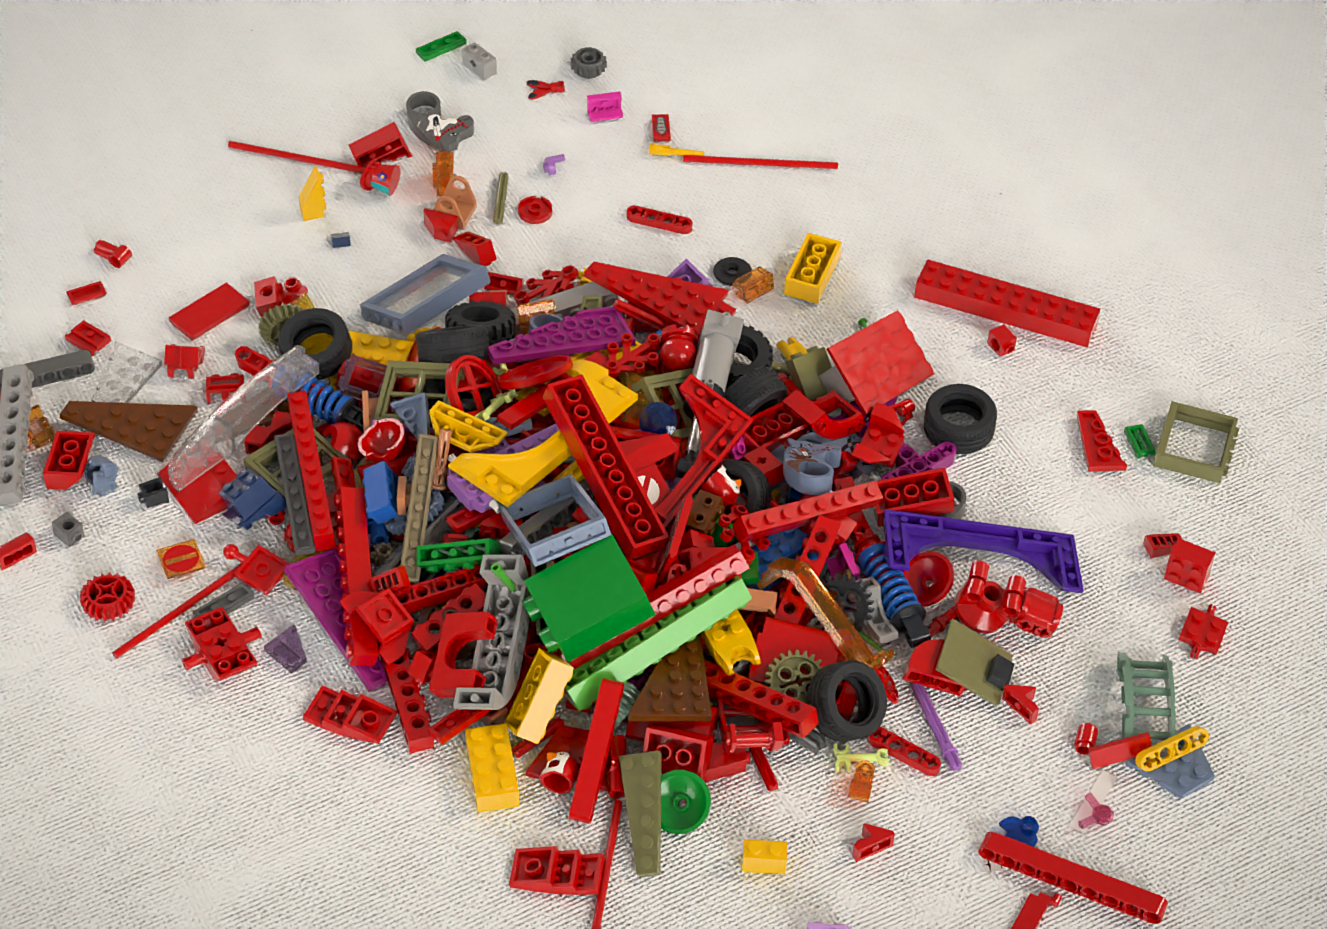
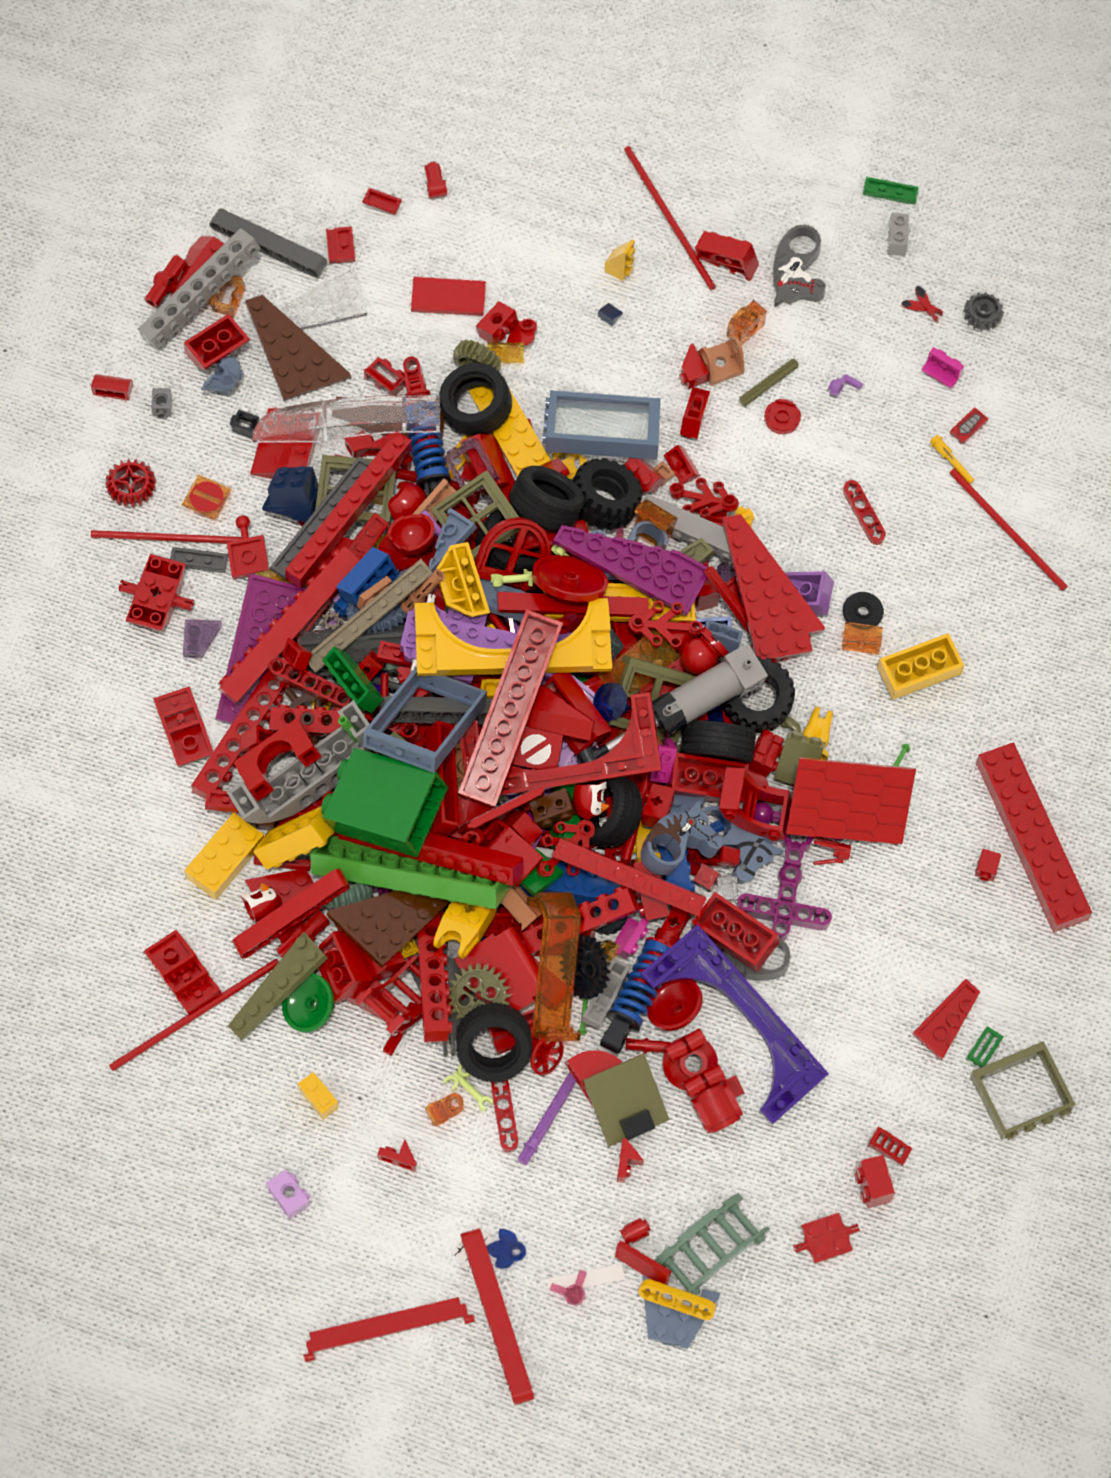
camera: 45 degrees right, 20 degrees up
(183, 358) = (381, 326): red piece -> none
(380, 177) = (694, 284): red hat -> none
(385, 619) = (262, 677): red piece -> none
(882, 438) = (773, 865): red piece -> none
(961, 399) = (872, 875): black tyre -> none

